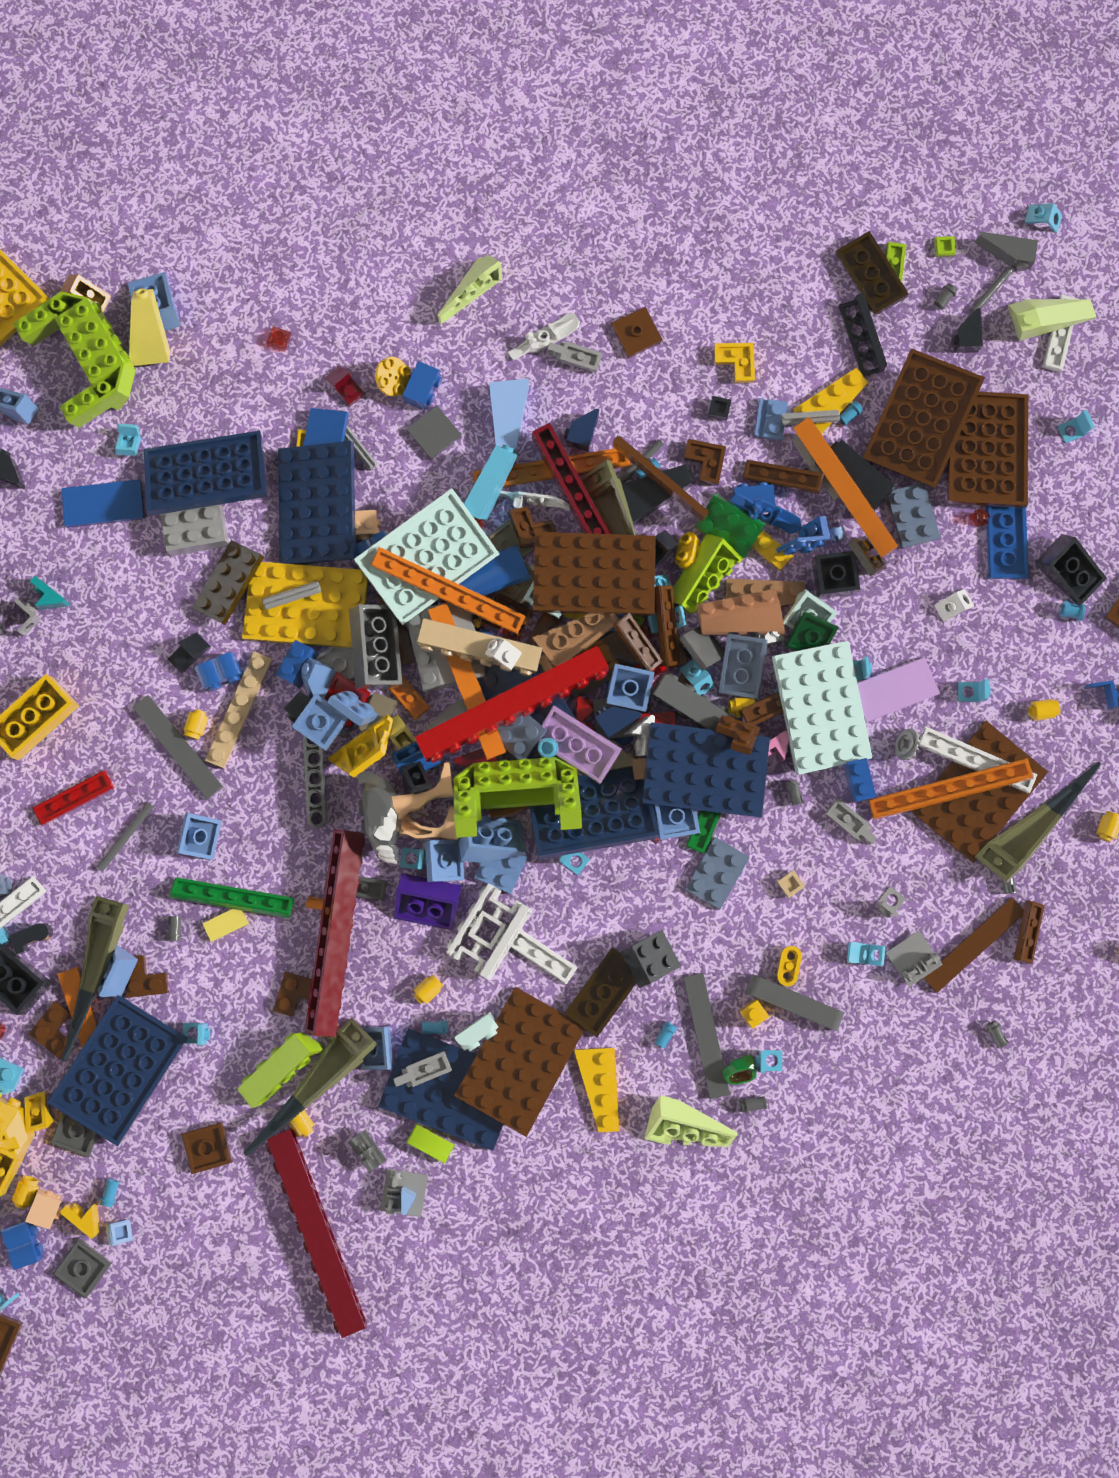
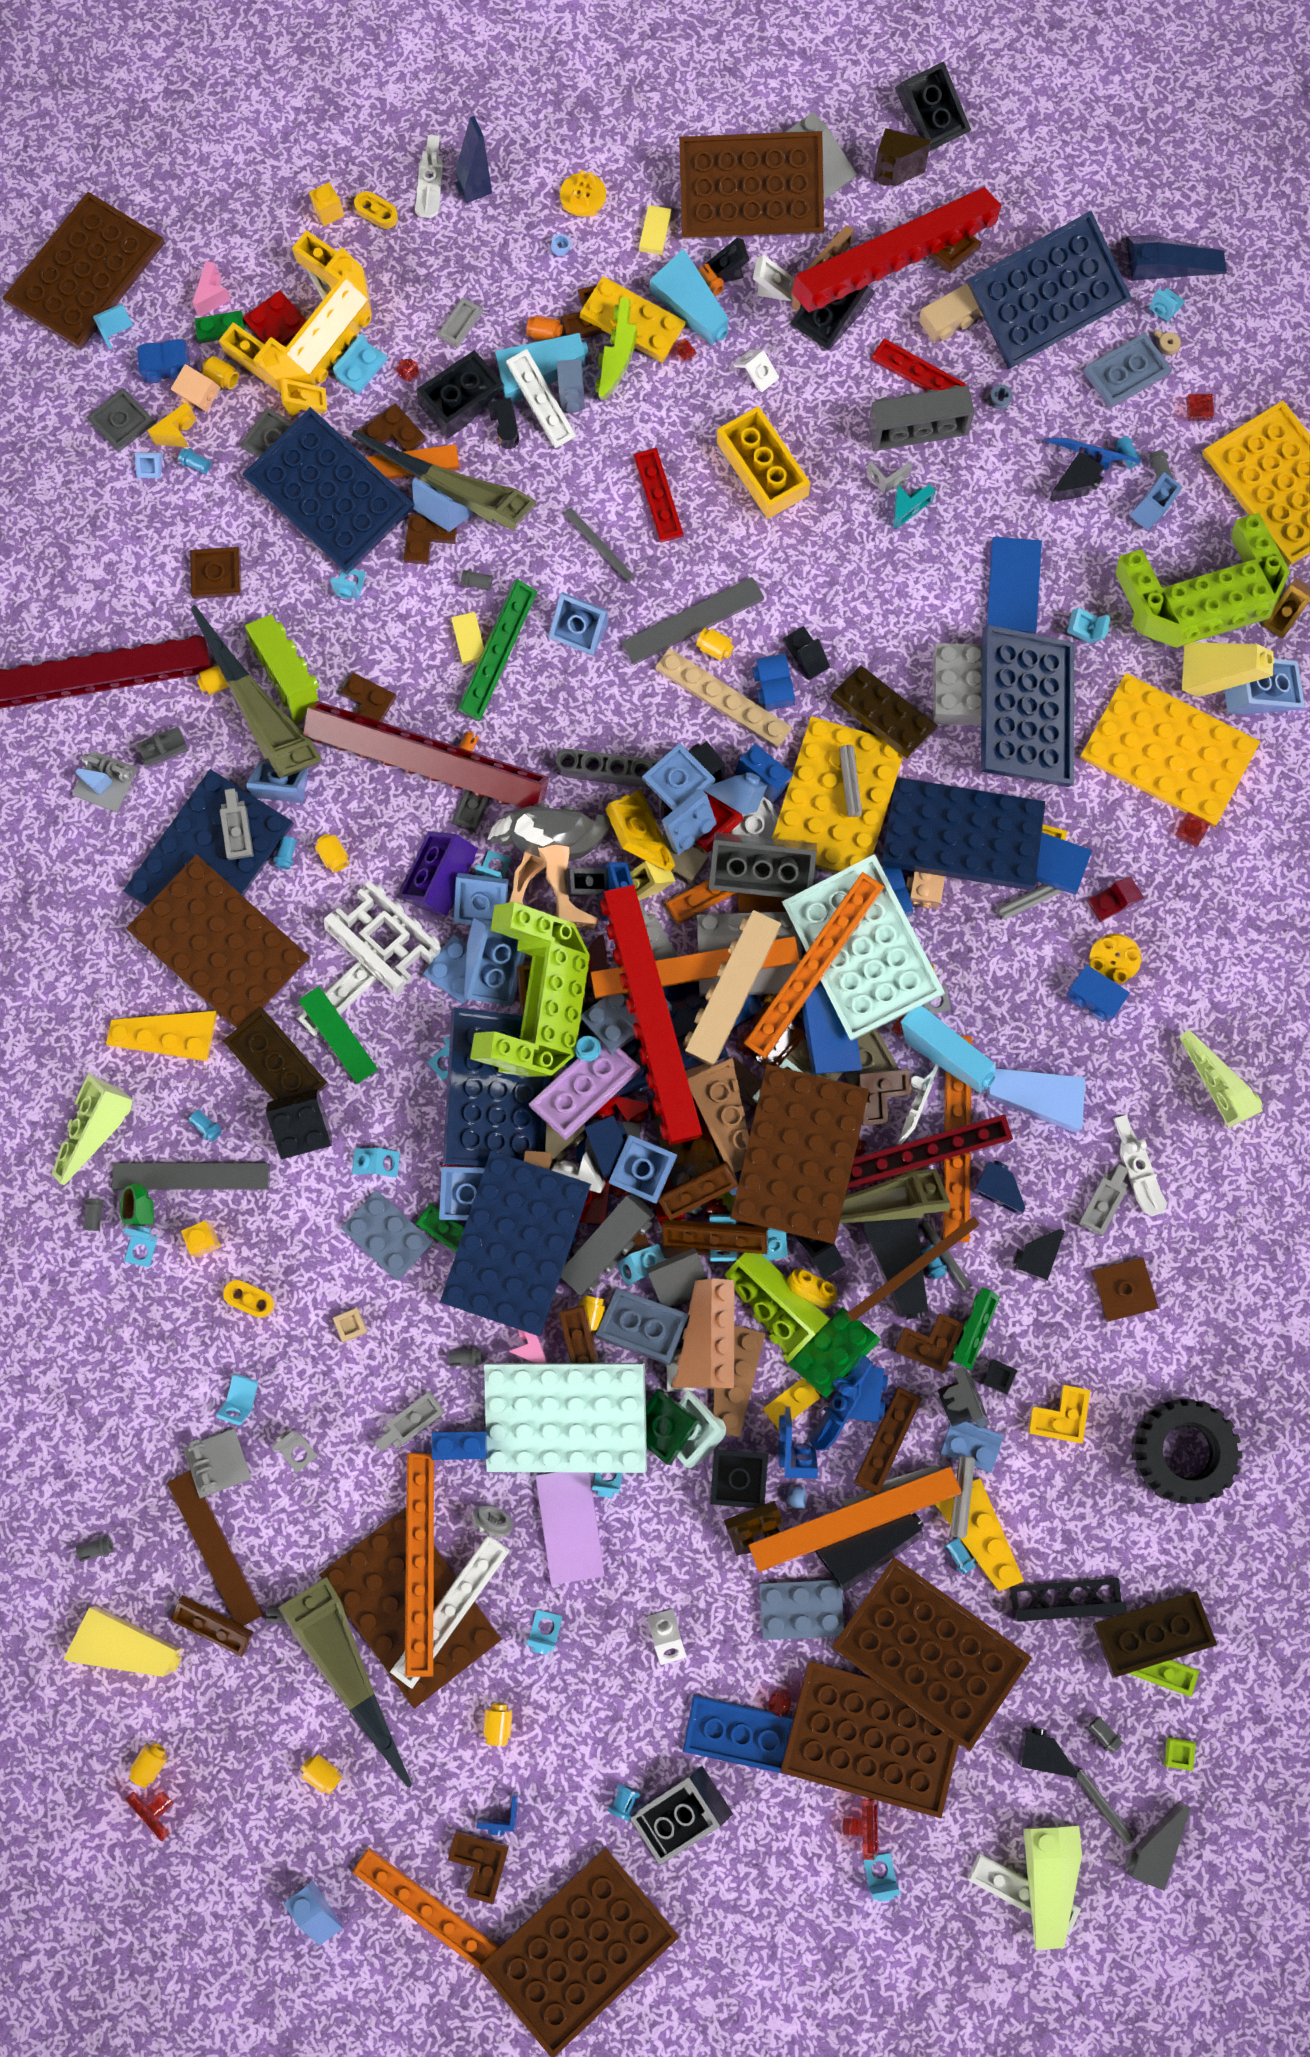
camera: 110 degrees right, 5 degrees down
(217, 365) = (1170, 749): none -> yellow plate
(430, 1143) = (151, 820): lime slope -> none
(434, 432) = (1033, 998): dark grey tile -> none
(475, 1032) = (265, 896): light aqua slope -> none
(503, 652) = (715, 1011): white bracket -> none
(573, 948) = (338, 1035): none -> green tile
(626, 394) = (1038, 1256): none -> black slope
(665, 897) = (371, 1162): none -> medium azure bracket
(689, 430) = (975, 1328): none -> green plate
(743, 733) = (551, 1299): reddish brown plate -> none
(745, 428) = (963, 1401): none -> dark grey piece
(748, 247) = (1222, 1451): none -> black tyre
(794, 1002) = (200, 1294): dark grey beam -> none
(1044, 214) = (1203, 1914): medium azure bracket -> none
(1047, 444) = (865, 1827): none -> clear red tile
(1059, 994) = (120, 1645): none -> light yellow slope

